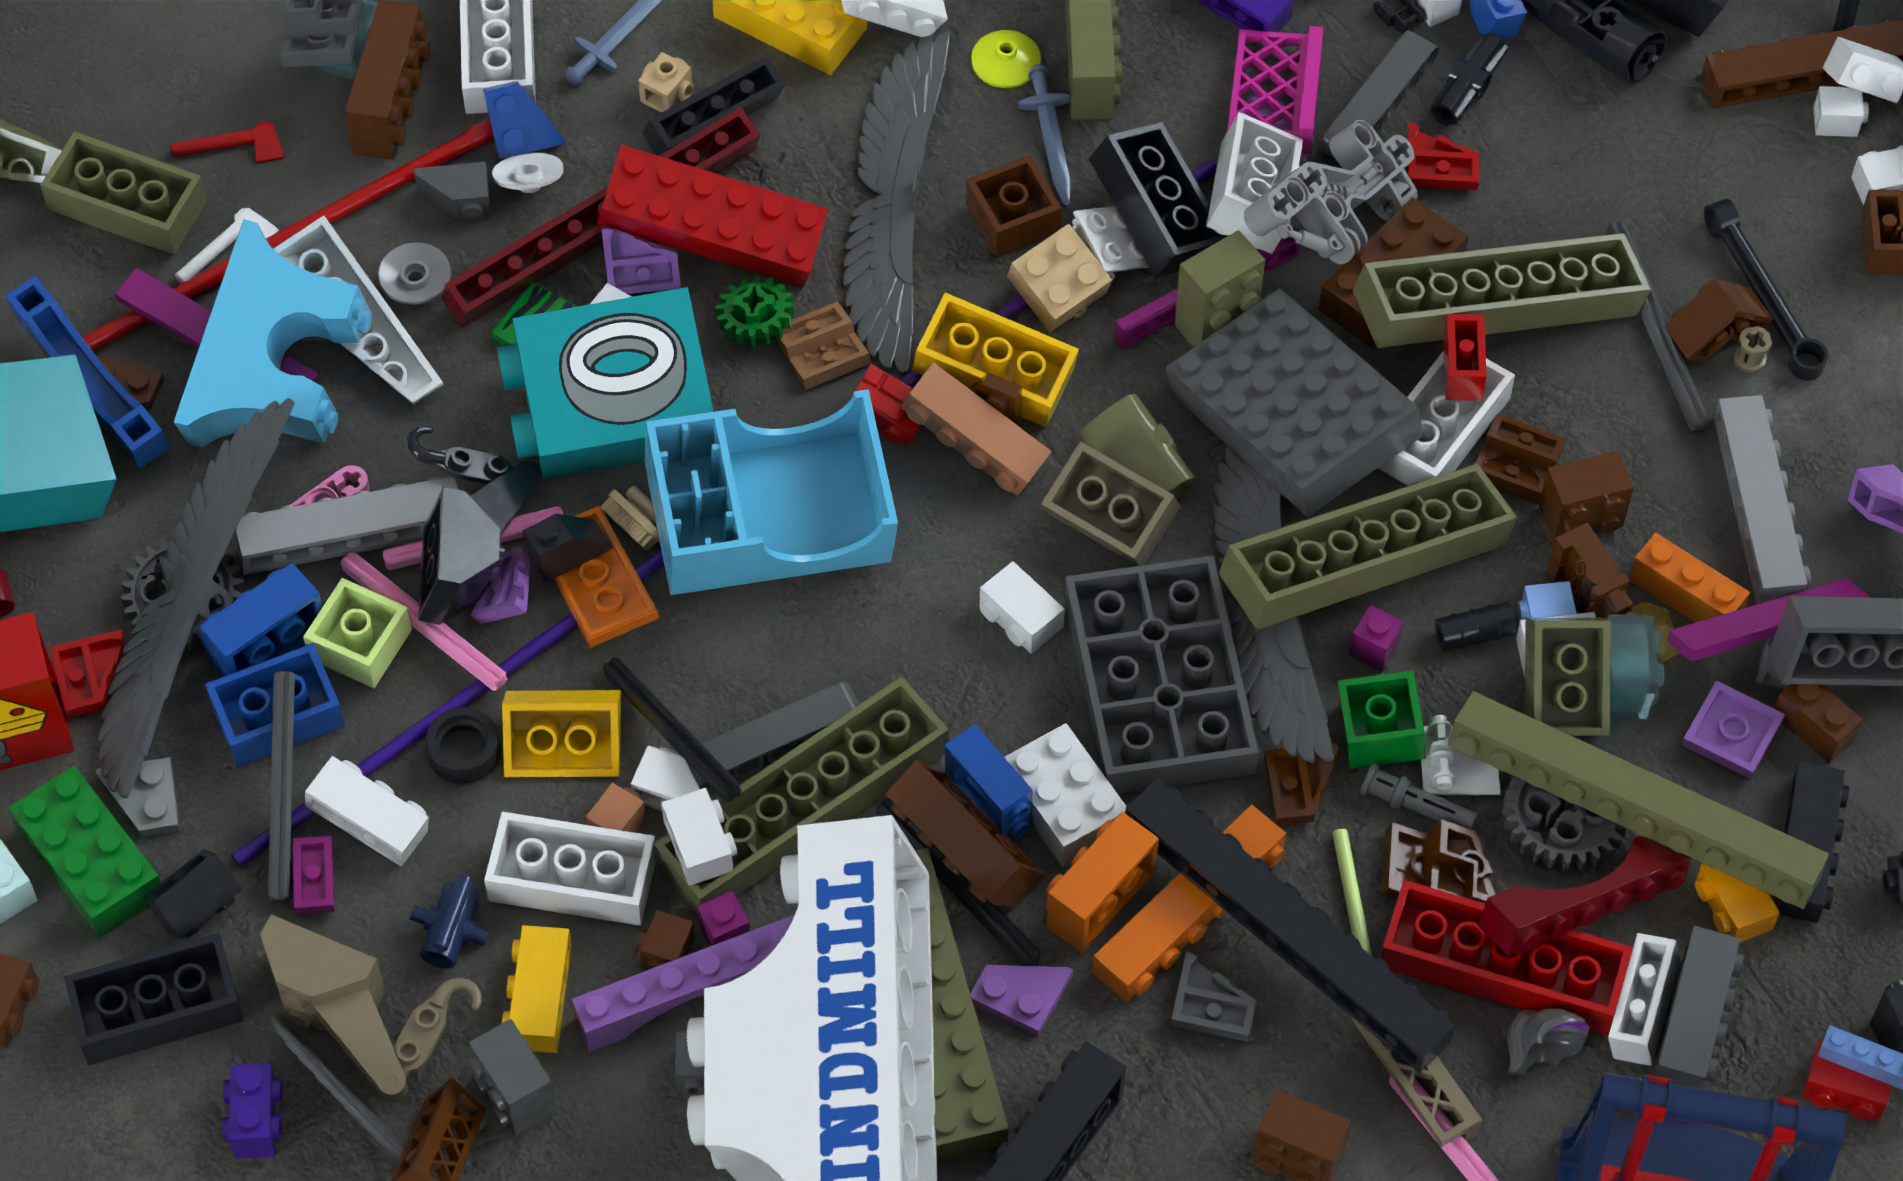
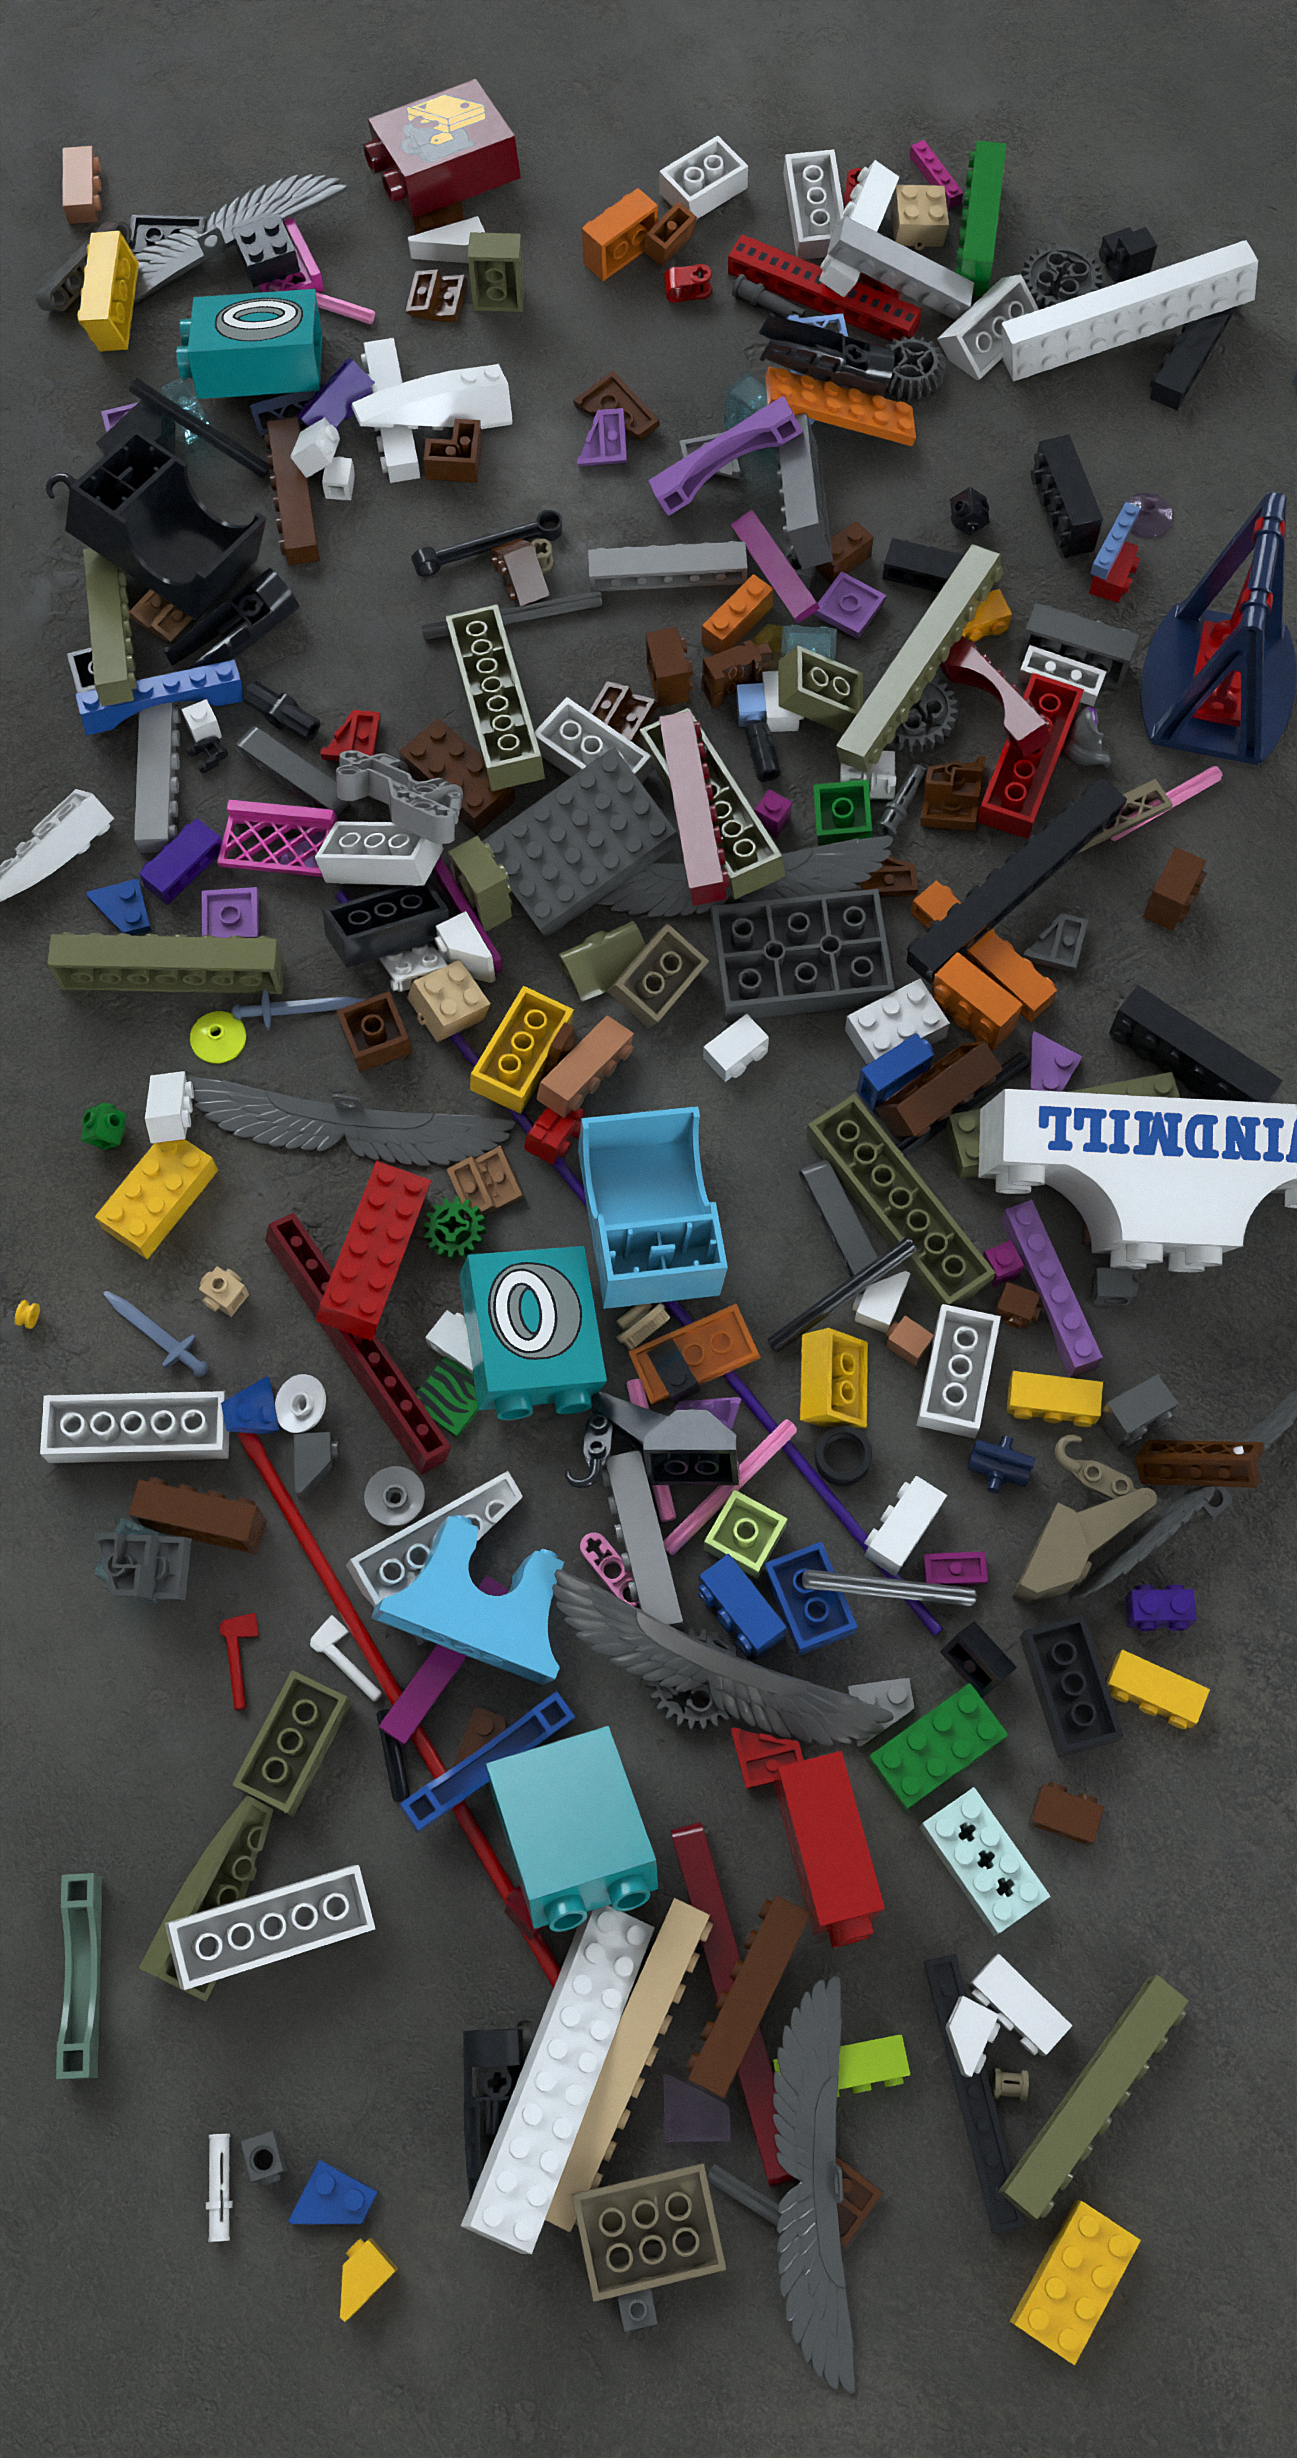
camera: 85 degrees left, 10 degrees up
(92, 301) = (394, 1763): none -> black axle
(148, 1105) = (1156, 1690): none -> yellow brick
(638, 263) = (403, 1316): medium lavender wing -> none
(698, 836) = (951, 1266): white brick -> none
(747, 88) = (255, 1253): black brick -> none
(1135, 282) = (461, 941): none -> white slope
(1168, 51) = (231, 912): none -> medium lavender plate
(1336, 501) = (692, 808): none -> brick
(1351, 888) = (973, 850): yellowish green bar -> none
(1464, 357) = (562, 719): red brick -> none

